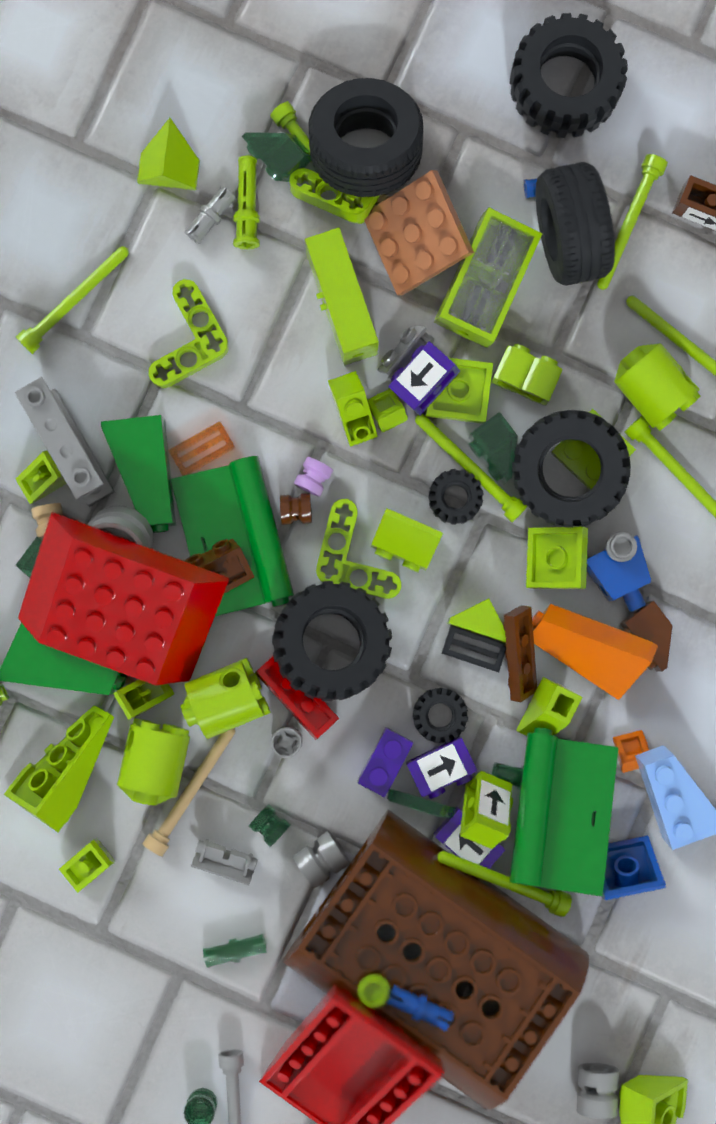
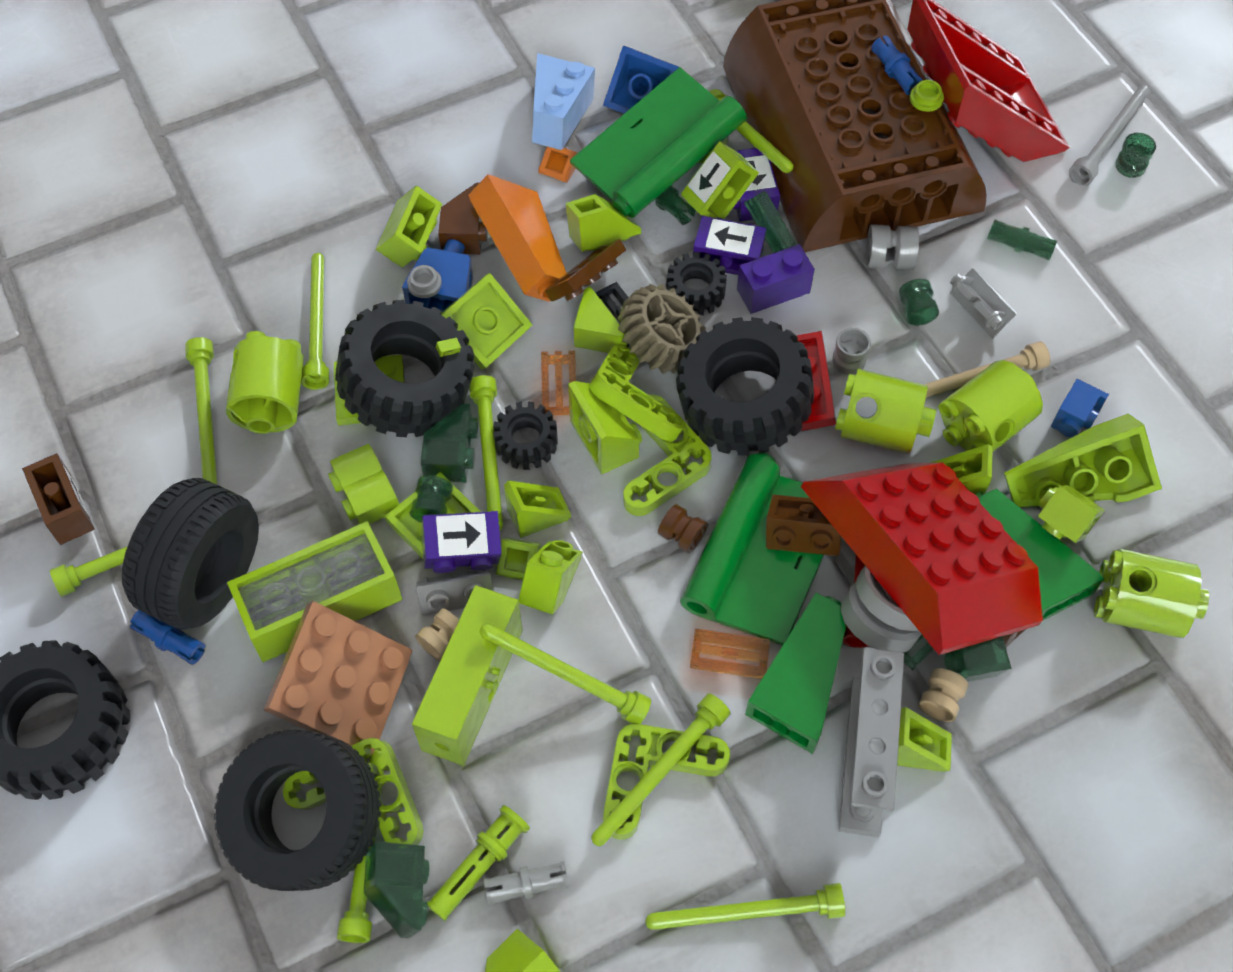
camera: 140 degrees left, 25 degrees down
(46, 712) = (1068, 513): none -> lime brick
(87, 865) = (1114, 374): lime slope -> none
(97, 814) = (1079, 409): none -> blue brick
(180, 391) = (710, 713): none -> lime piece
(233, 363) = (631, 705): none -> lime piece
(314, 474) = (641, 543): lavender wheel -> none
(386, 315) = (437, 636): none -> tan wheel
(402, 449) = (534, 507): none -> lime slope
(416, 570) = (613, 387): none -> lime beam
(443, 643) = (659, 326): none -> dark tan gear
(467, 390) = (431, 497): none -> clear green wheel
(476, 547) = (557, 359): none -> clear orange tile
(548, 497) = (448, 347): none -> lime piece
(682, 593) = (409, 226): none -> lime brick

